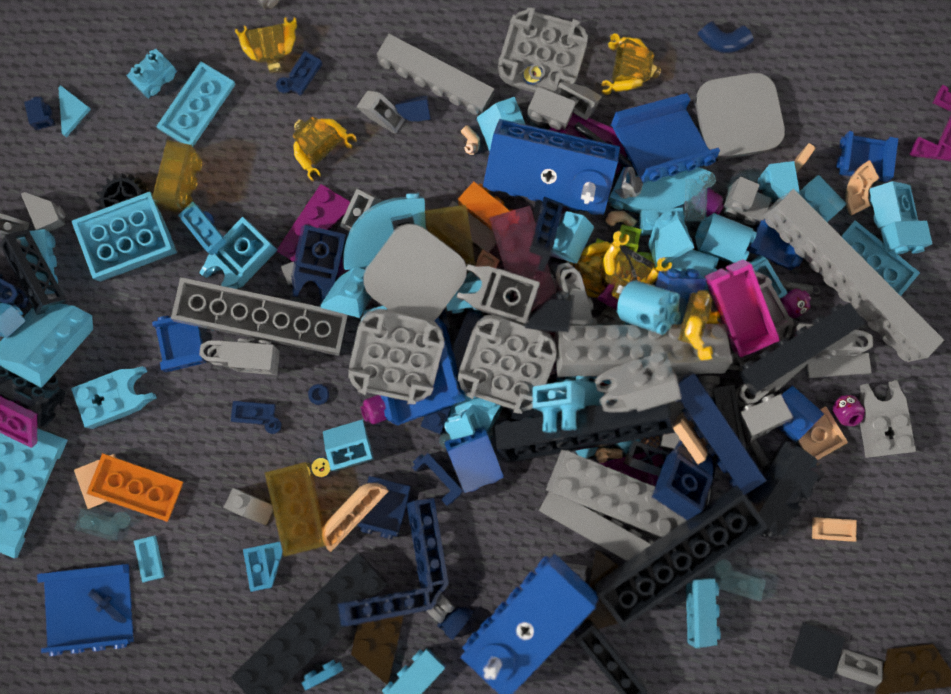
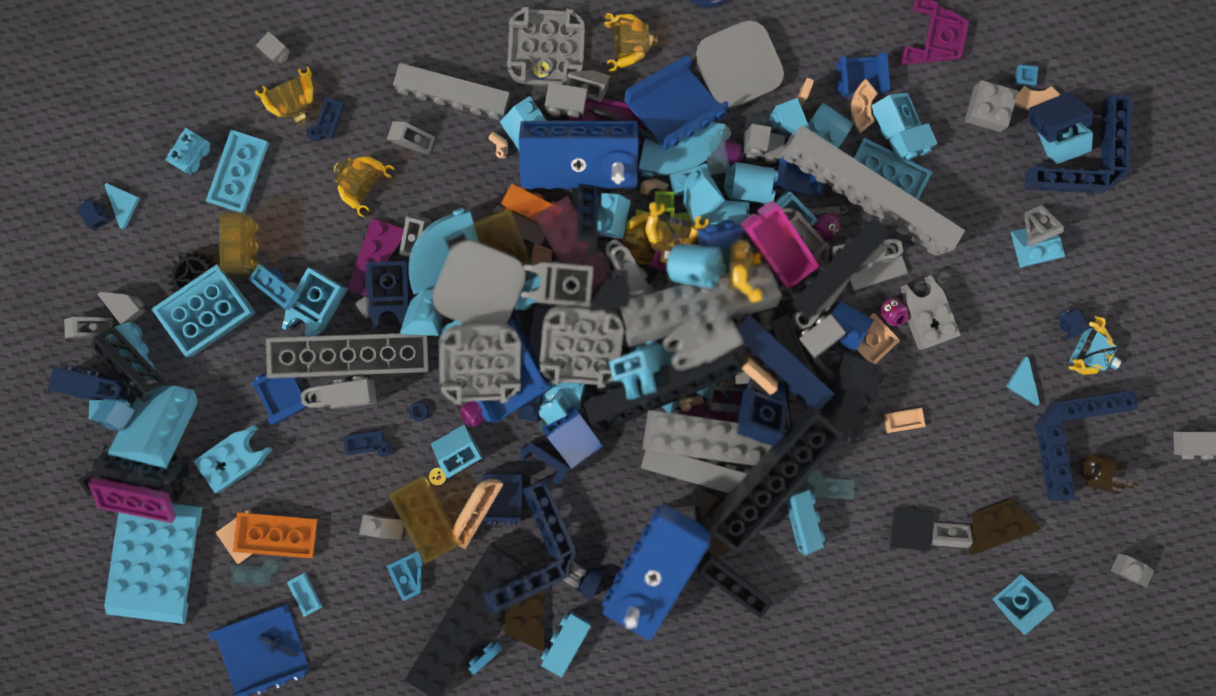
camera: 20 degrees left, 5 degrees up
(414, 108) = (440, 127): dark blue brick -> none
(630, 190) = (658, 157): light grey piece -> none

